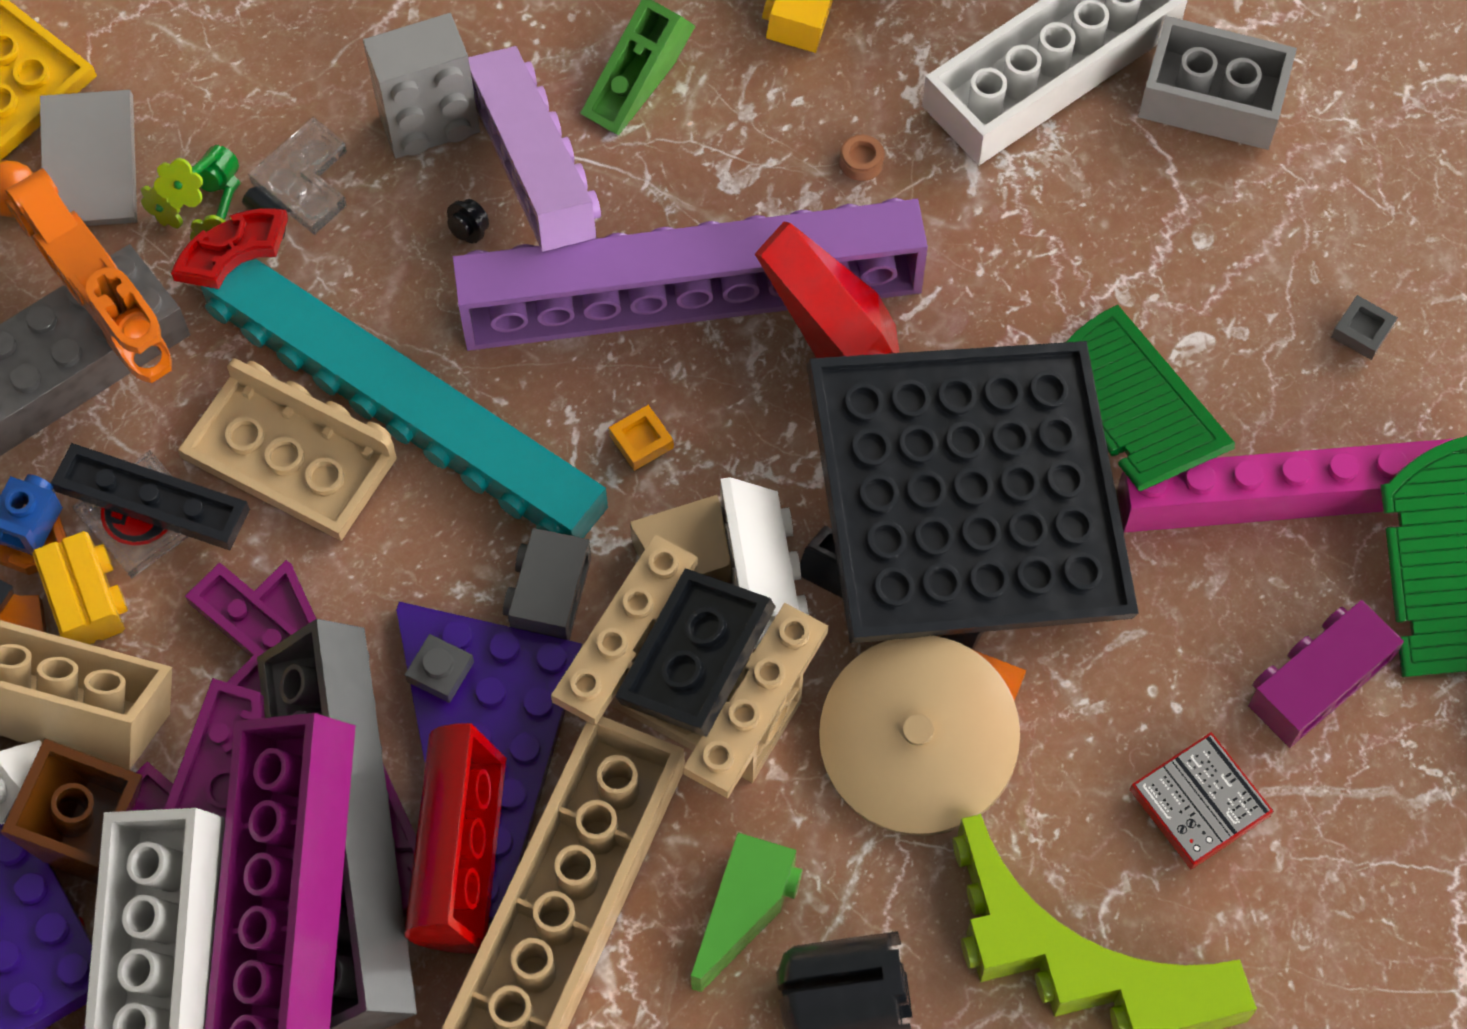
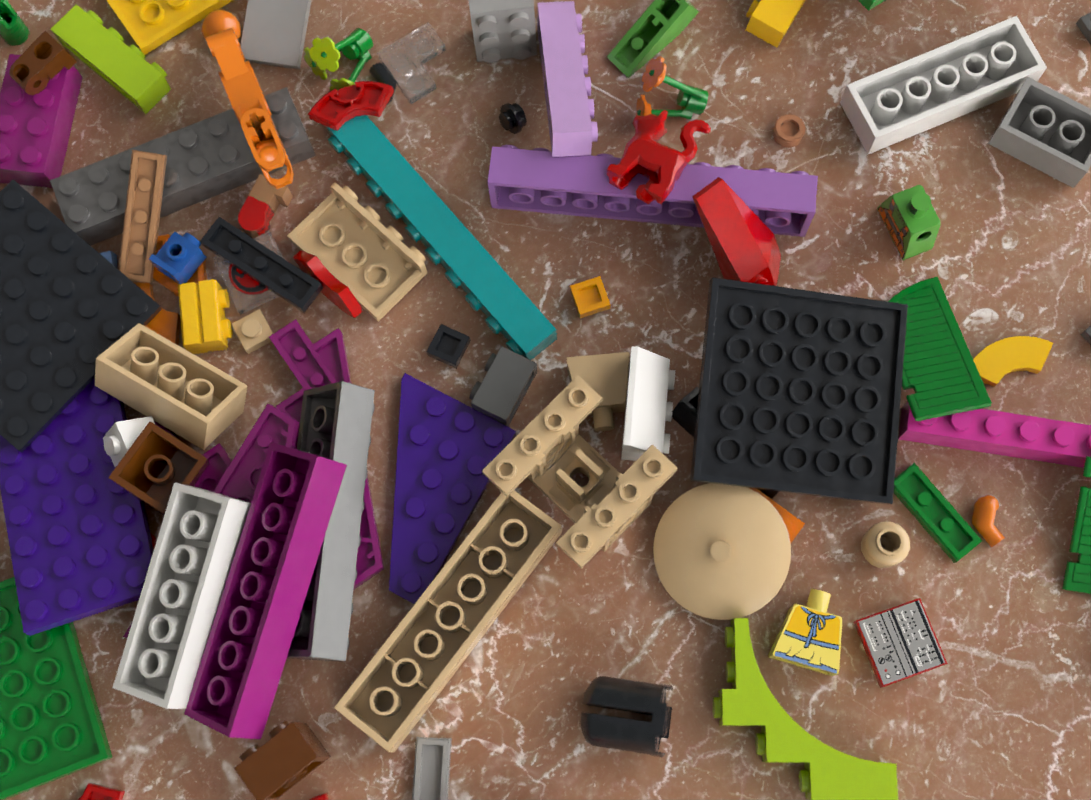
camera: 20 degrees right, 10 degrees up
(130, 415) = (261, 207): none -> leg
(158, 596) = (253, 331): none -> tan plate
(267, 510) = (332, 288): none -> red tile
(439, 668) = (418, 427): dark grey plate -> none
(454, 549) = (448, 346): none -> black plate
(456, 841) = (399, 550): red brick -> none
(687, 223) = (654, 160): none -> red animal
(695, 652) = (584, 465): black plate -> none
(713, 142) = (689, 98): none -> plant
(747, 901) = (581, 632): bright green slope -> none
(1061, 237) = (909, 217): none -> bright green torso
(1075, 823) = (810, 636): none -> torso
(1144, 671) = (895, 543): none -> tan head
(1201, 617) = (935, 513): none -> green tile
(1248, 385) = (1011, 355): none -> yellow tile
(1269, 608) = (983, 519): none -> orange arm
(1323, 672) = (1009, 574): magenta brick -> none

